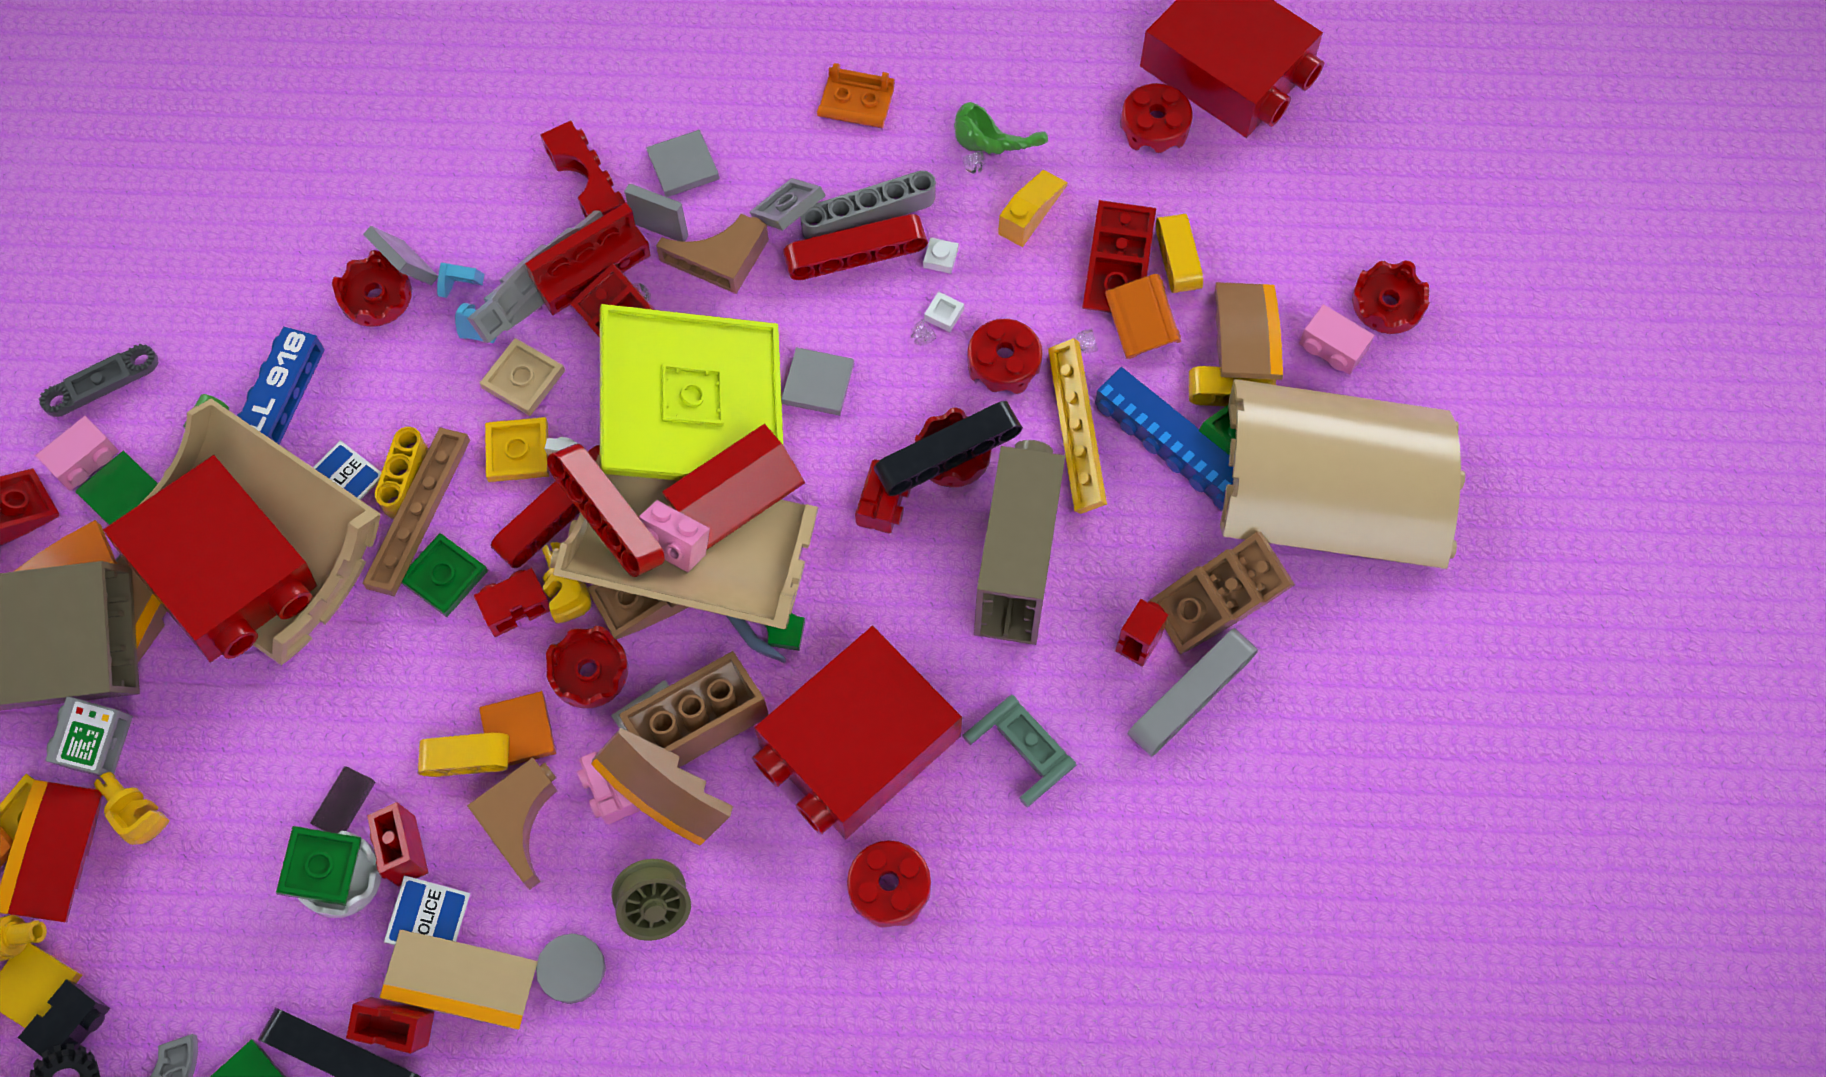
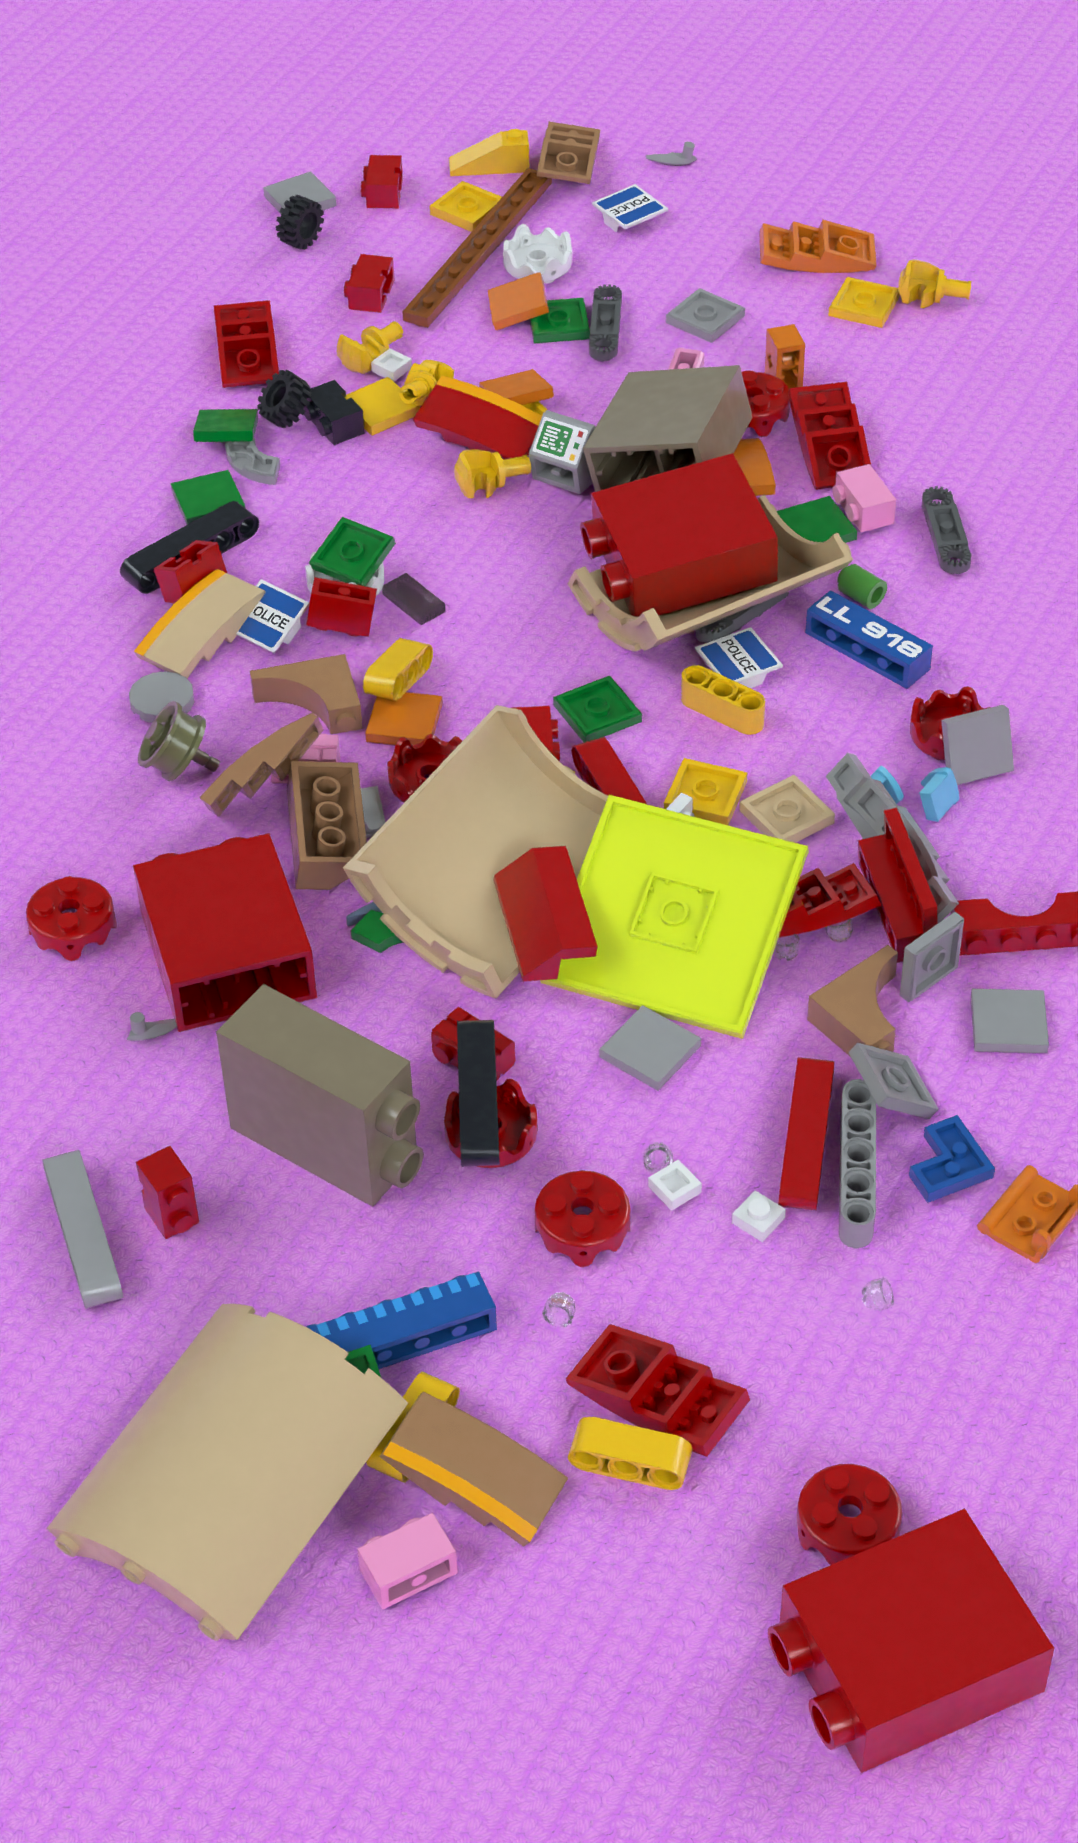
camera: 115 degrees right, 20 degrees down
(416, 512) = (673, 699): medium nougat plate -> none
(605, 510) = (560, 783): beam -> none
(680, 537) = (508, 841): bright pink brick -> none
(837, 148) = (957, 1164): none -> blue plate
(972, 753) = (147, 1030): none -> light grey bar
(977, 132) = (912, 1308): bright green hair -> none
(1029, 207) = (780, 1325): yellow slope -> none
(1030, 742) = (129, 1072): sand green plate -> none
(1077, 426) = (443, 1248): yellow plate -> none
(1142, 315) = (555, 1372): orange piece -> none
(1222, 592) = (166, 1291): medium nougat slope -> none
(1394, 281) = (430, 1634): red plate -> none

